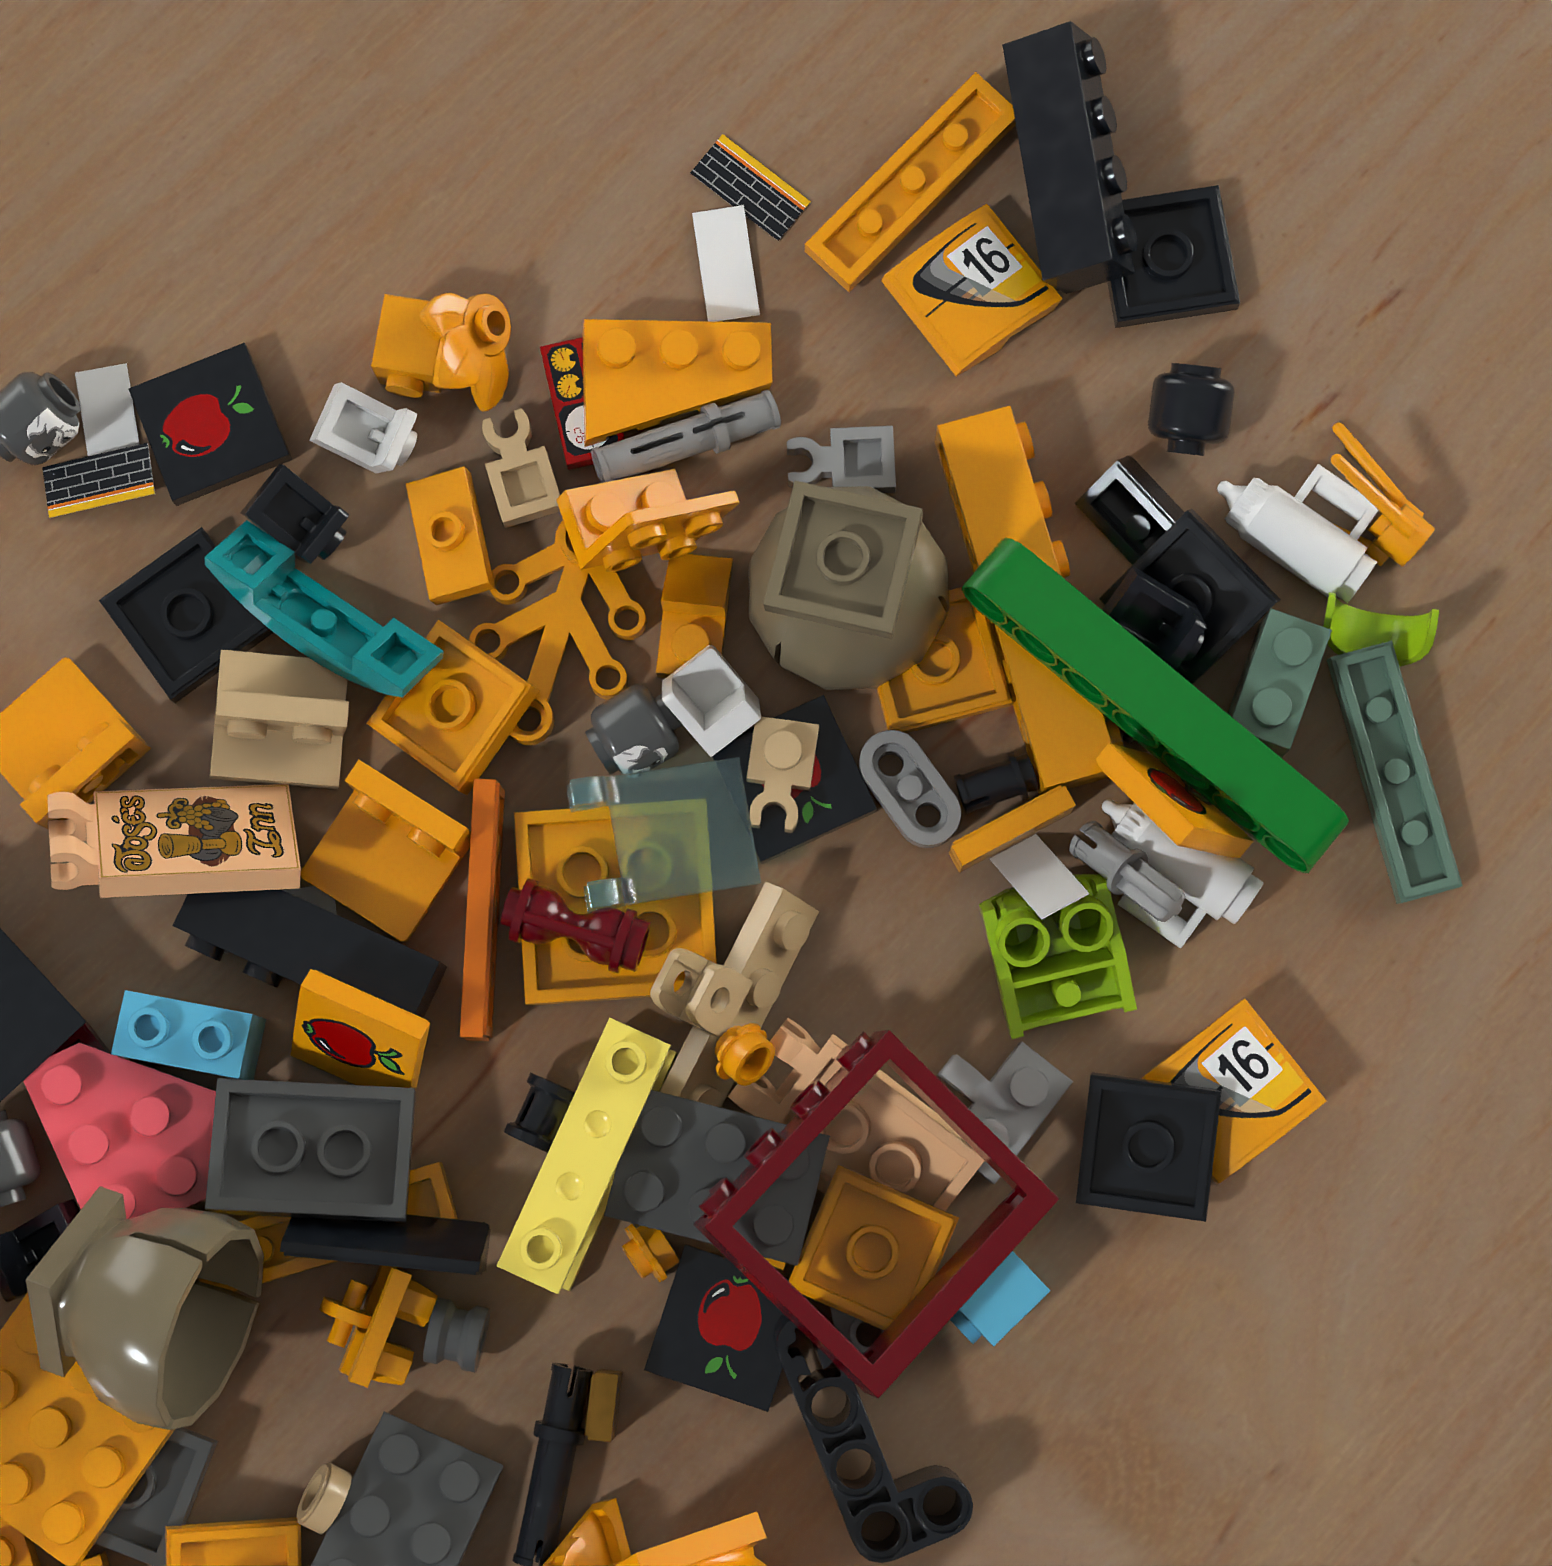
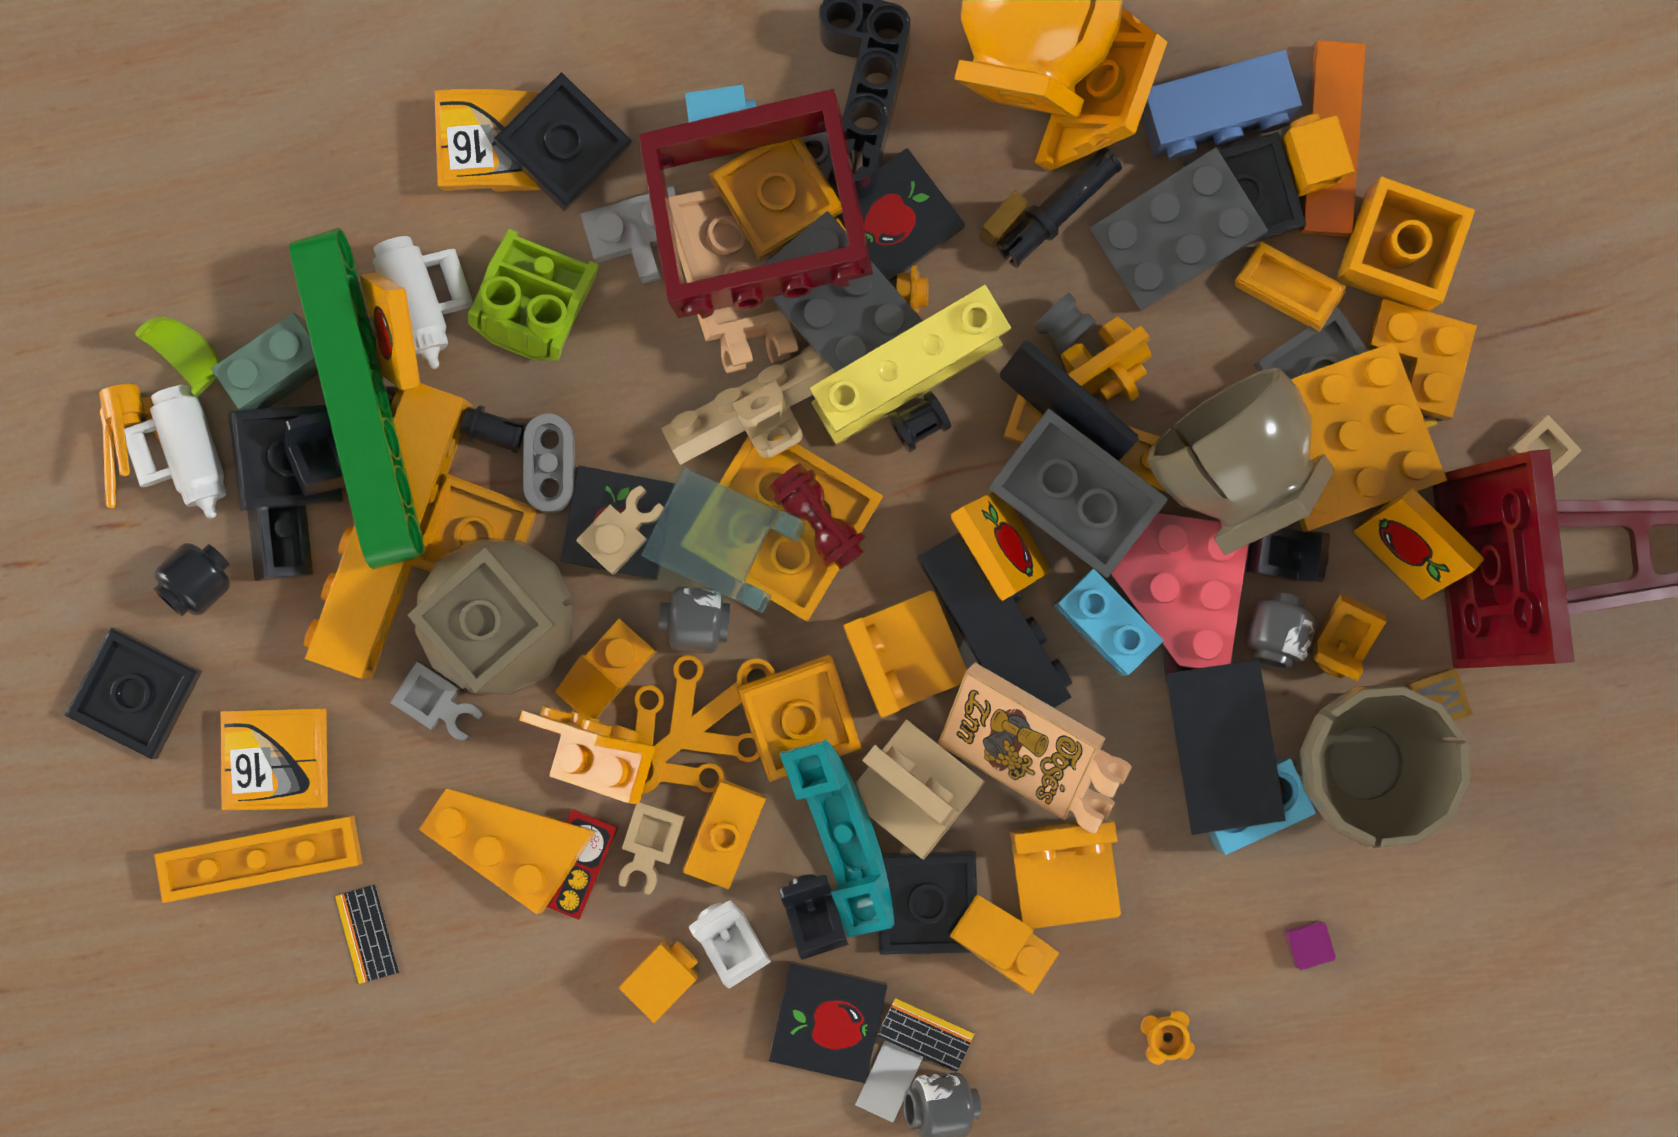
camera: 150 degrees left, 5 degrees up
(76, 624) = (1004, 944): none -> light orange slope
(323, 1498) = (1211, 282): tan tile -> none
(470, 345) = (616, 955): light orange plate -> none
(482, 910) = (870, 573): orange tile -> none
(682, 439) = (474, 774): light grey pin -> none
(711, 700) = (632, 604): white panel -> none
(726, 263) = (419, 893): white sticker -> none
(744, 1054) = (769, 363): light orange plate -> none
(1011, 828) = (504, 392): light orange tile -> none
(1039, 876) = (508, 348): white sticker -> none
(1070, 158) = (144, 799): black brick -> none
(1128, 872) = (451, 309): light grey axle -> none
(1394, 772) = (242, 262): sand green tile -> none

